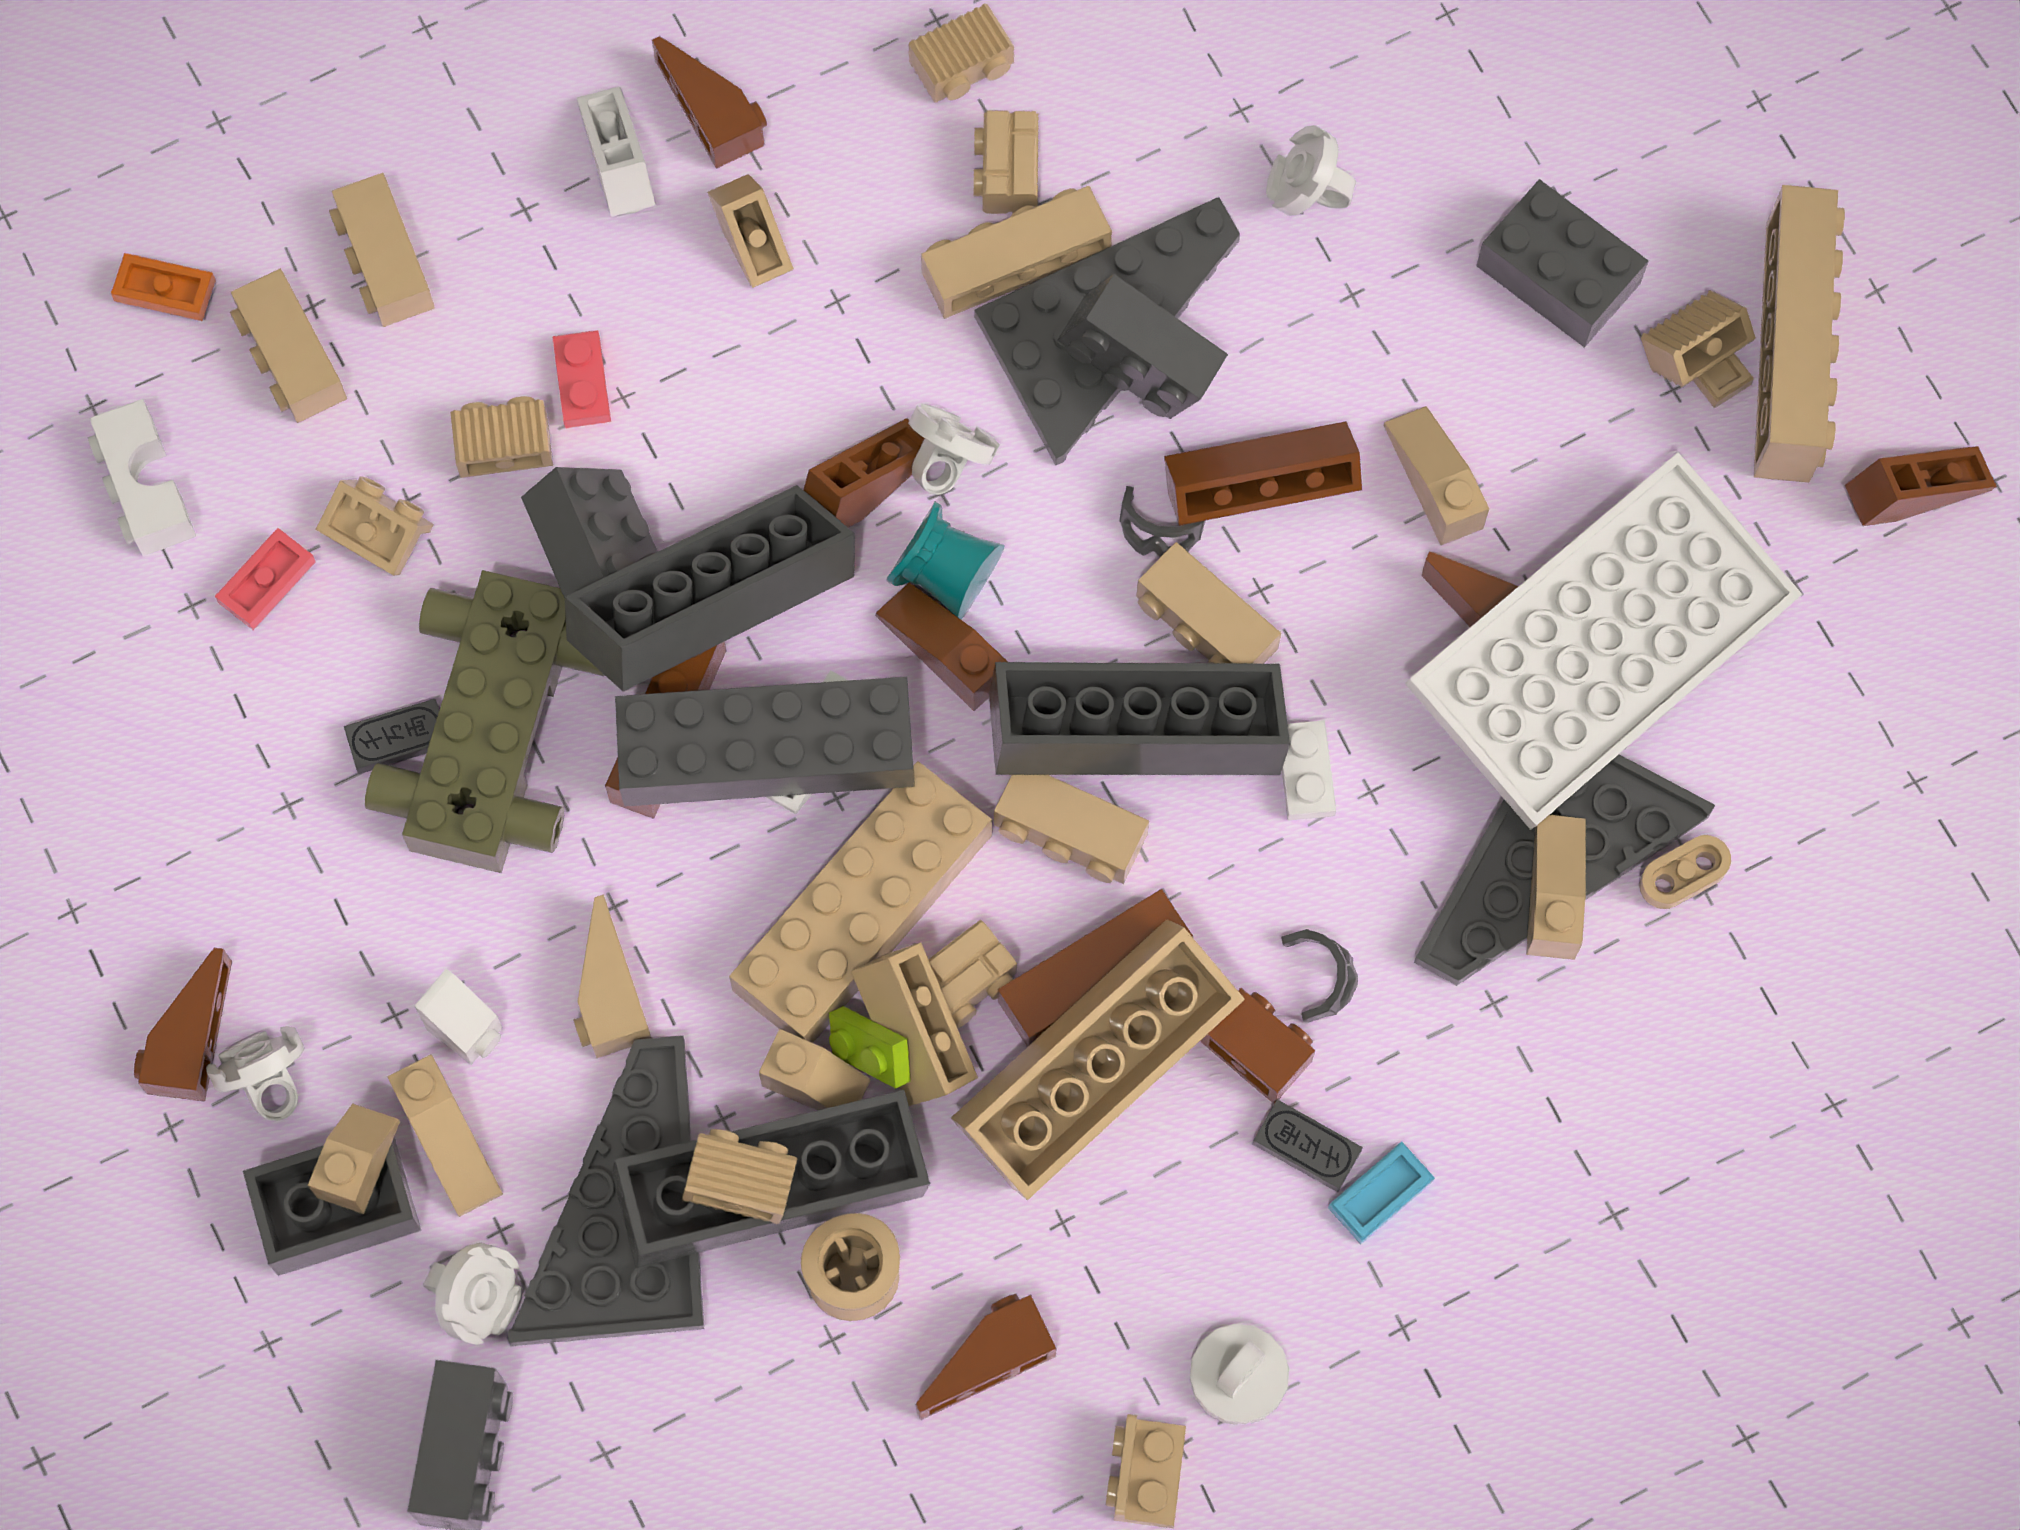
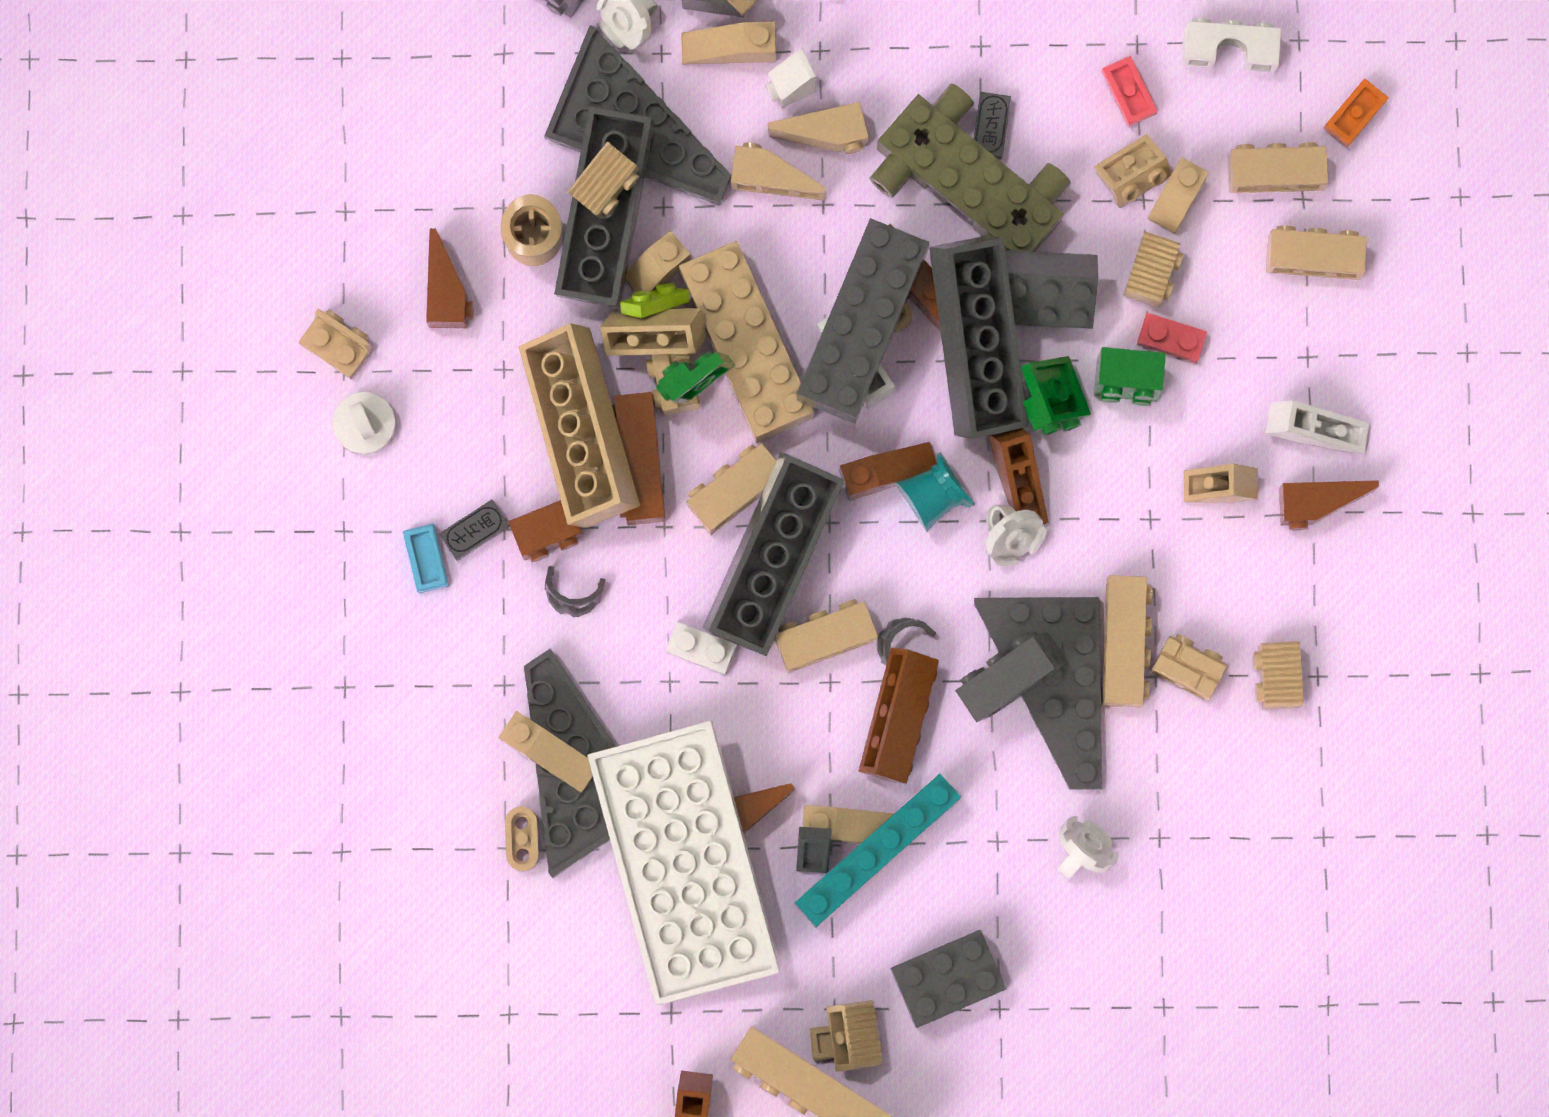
camera: 120 degrees right, 10 degrees up
(382, 451) = (1178, 195): none -> tan slope
(501, 932) = (828, 129): none -> tan slope
(665, 392) = (1129, 375): none -> green brick
(736, 468) = (1055, 396): none -> green plate
(969, 929) = (686, 380): none -> green plate
(1495, 491) = (813, 849): none -> dark grey tile
(1521, 443) = (877, 850): none -> teal arch

